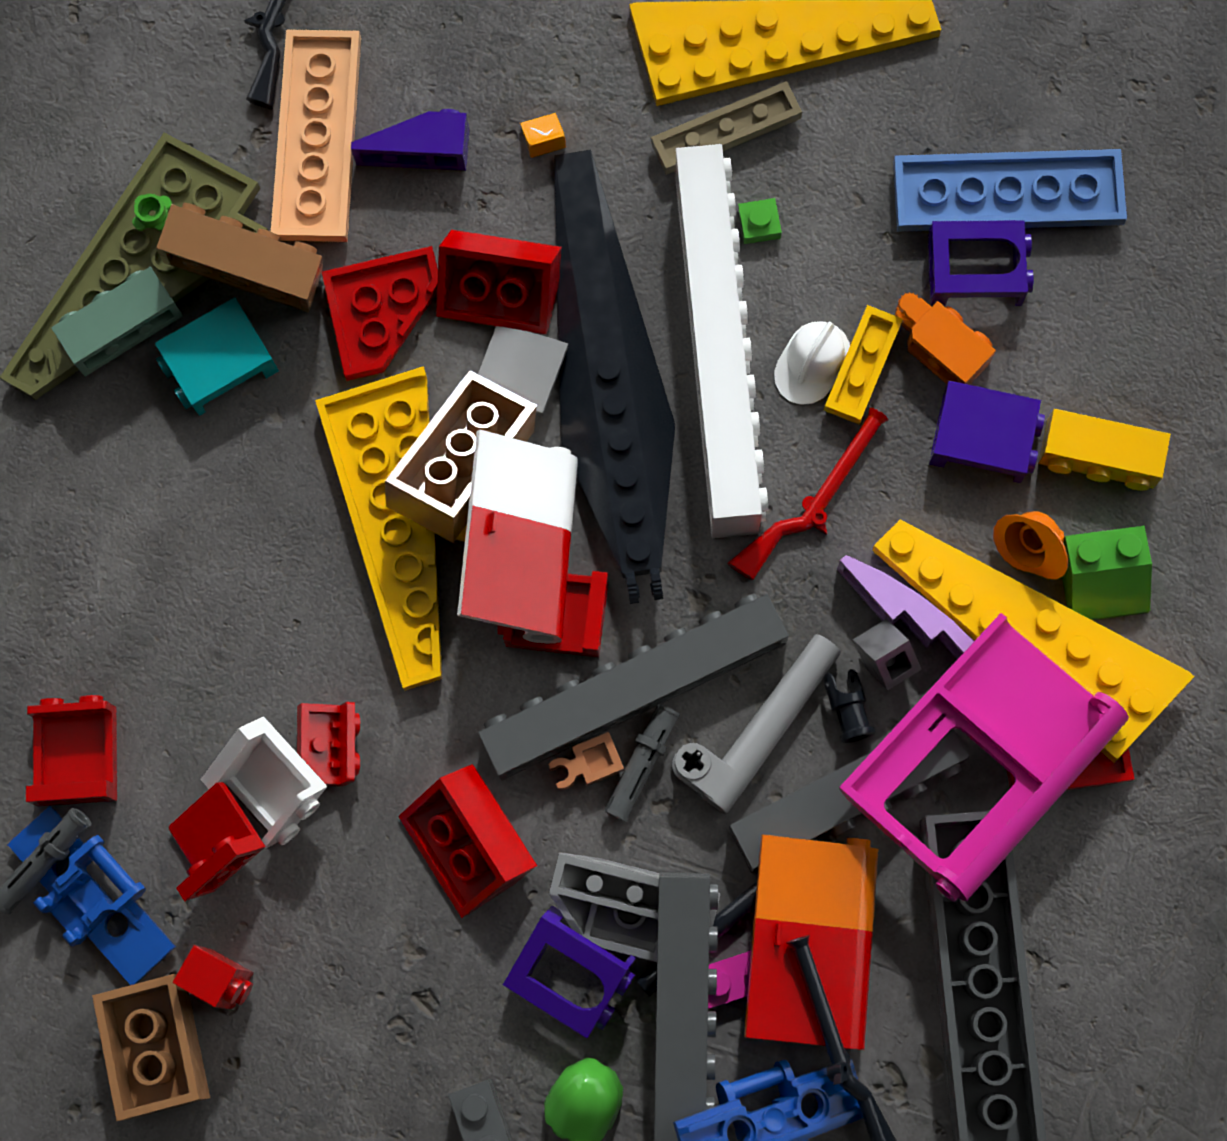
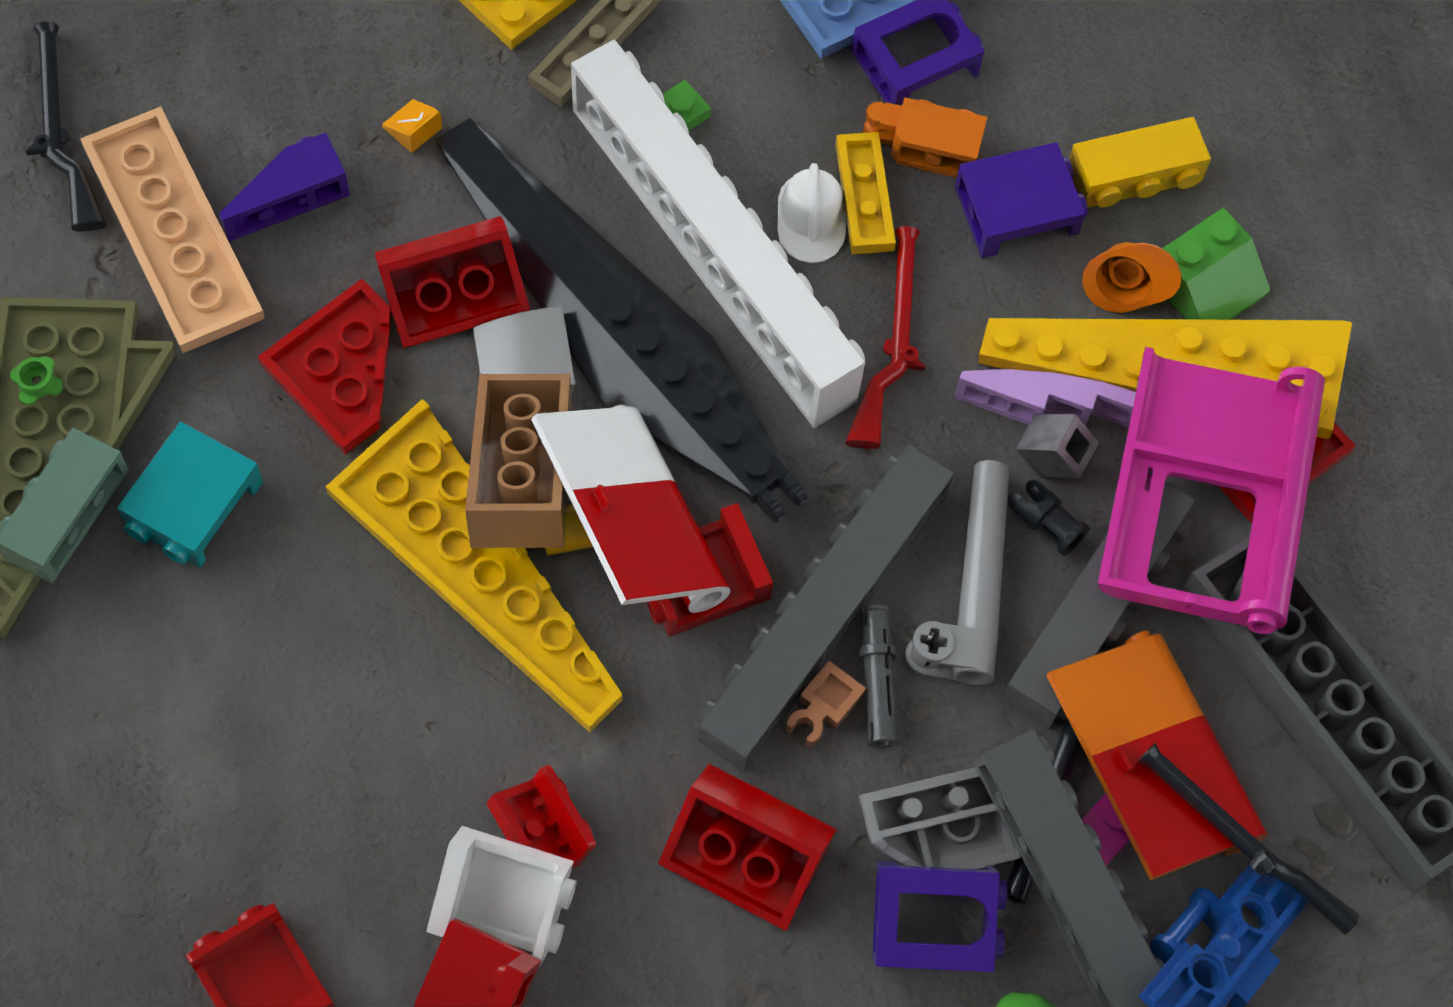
camera: 40 degrees left, 10 degrees down
(240, 257) = (169, 373): medium nougat brick -> none

